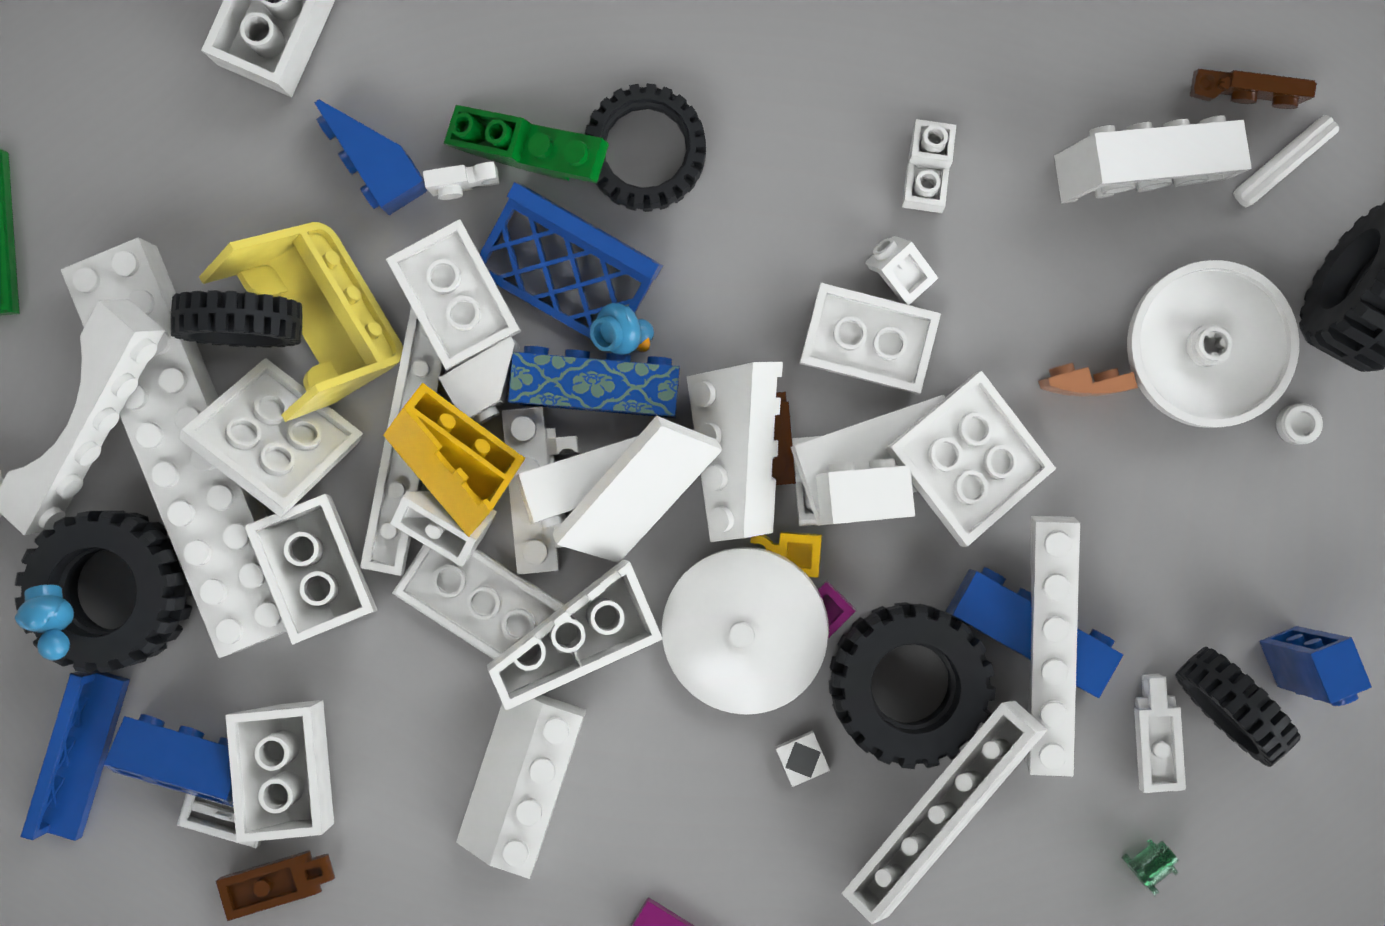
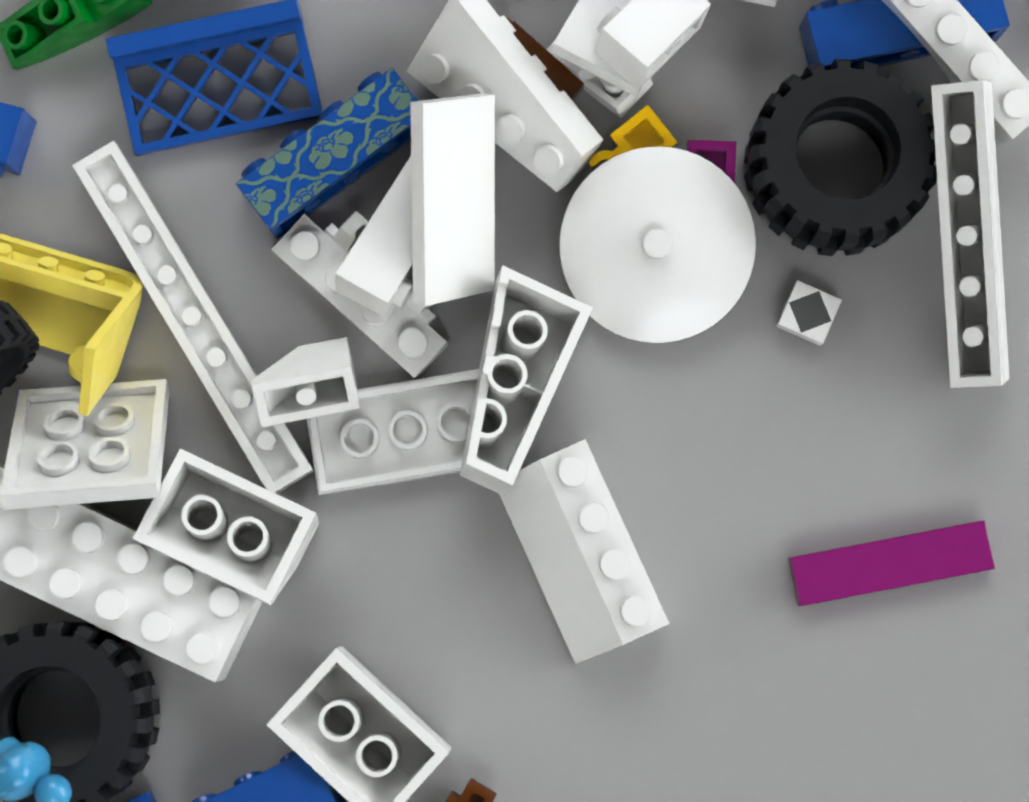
camera: 45 degrees left, 5 degrees down
(453, 180) = (51, 88): white plate -> none
(453, 295) = (139, 180): white plate -> none
(453, 456) = (264, 314): yellow wedge -> none
(482, 381) = (231, 239): white slope -> none
(620, 330) = (313, 84): dark azure animal -> none

